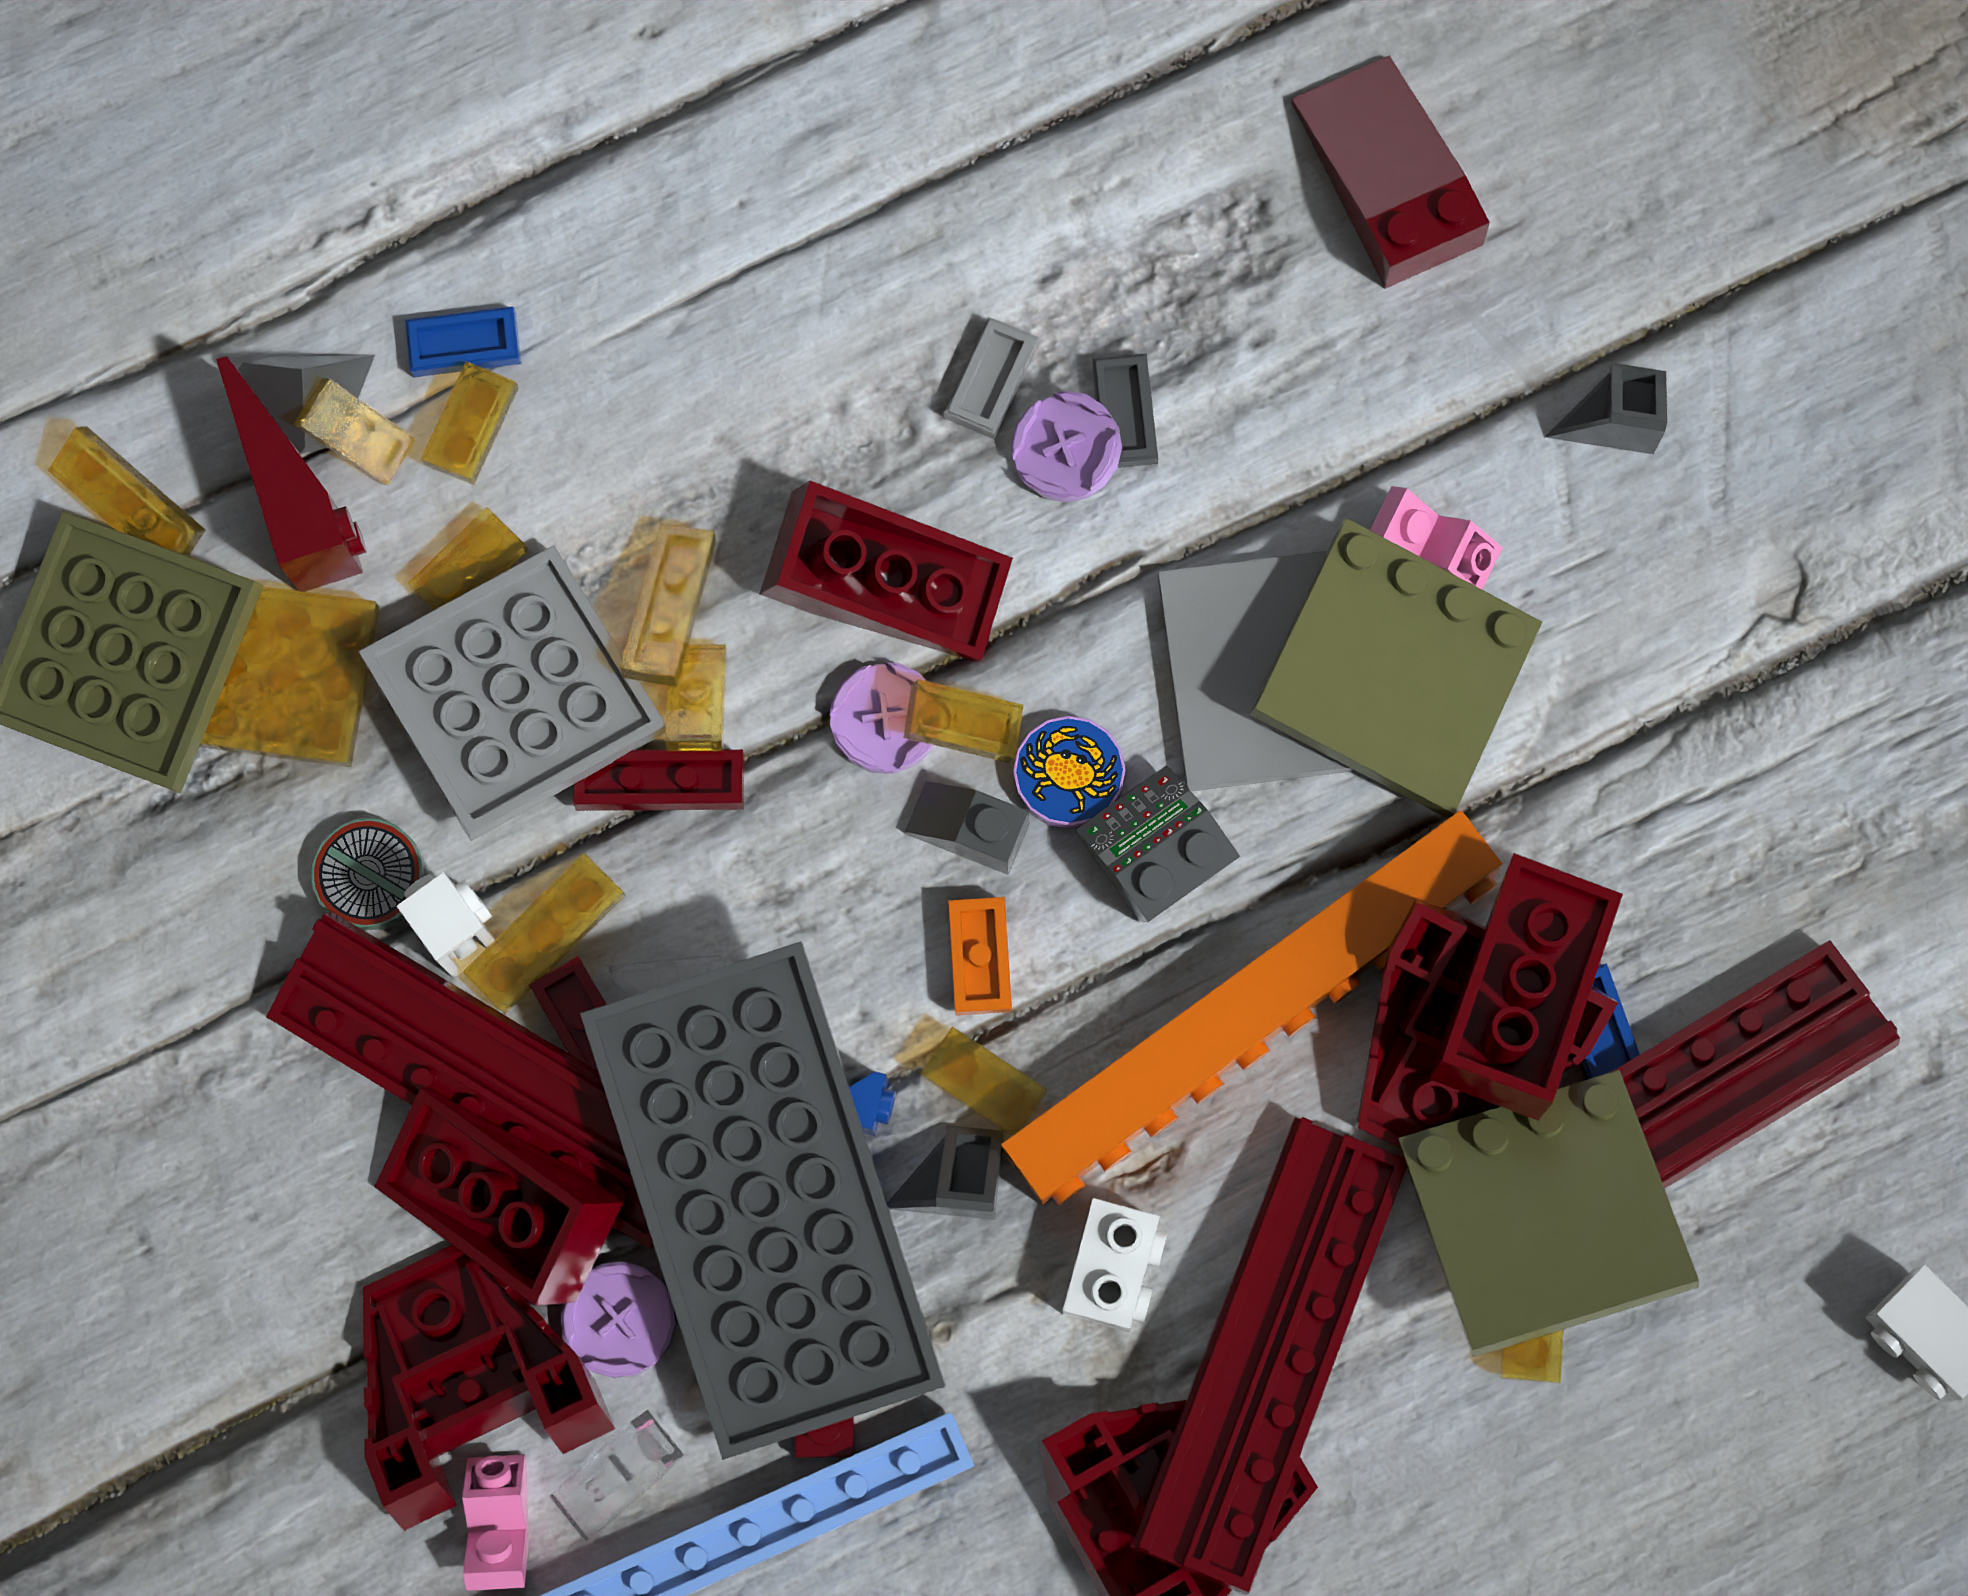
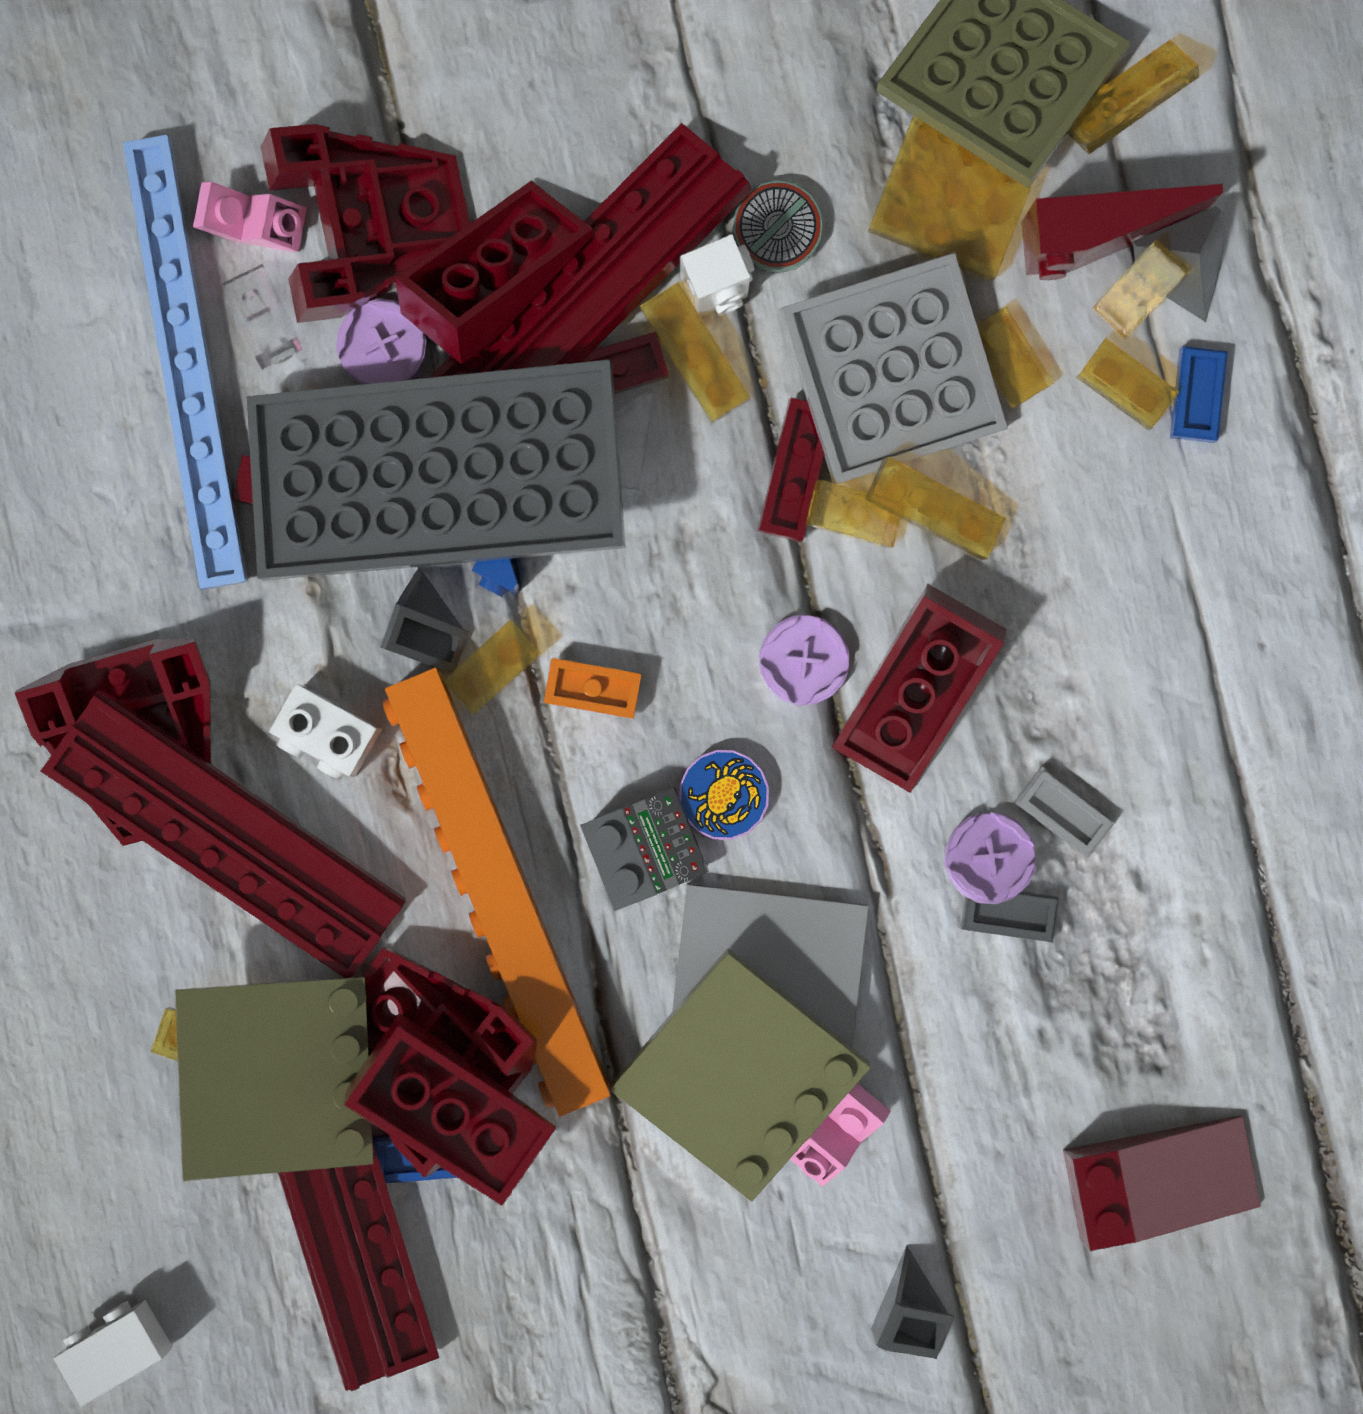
camera: 95 degrees right, 10 degrees up
(963, 721) = (782, 720): clear yellow plate -> none
(969, 824) = (699, 703): dark grey slope -> none

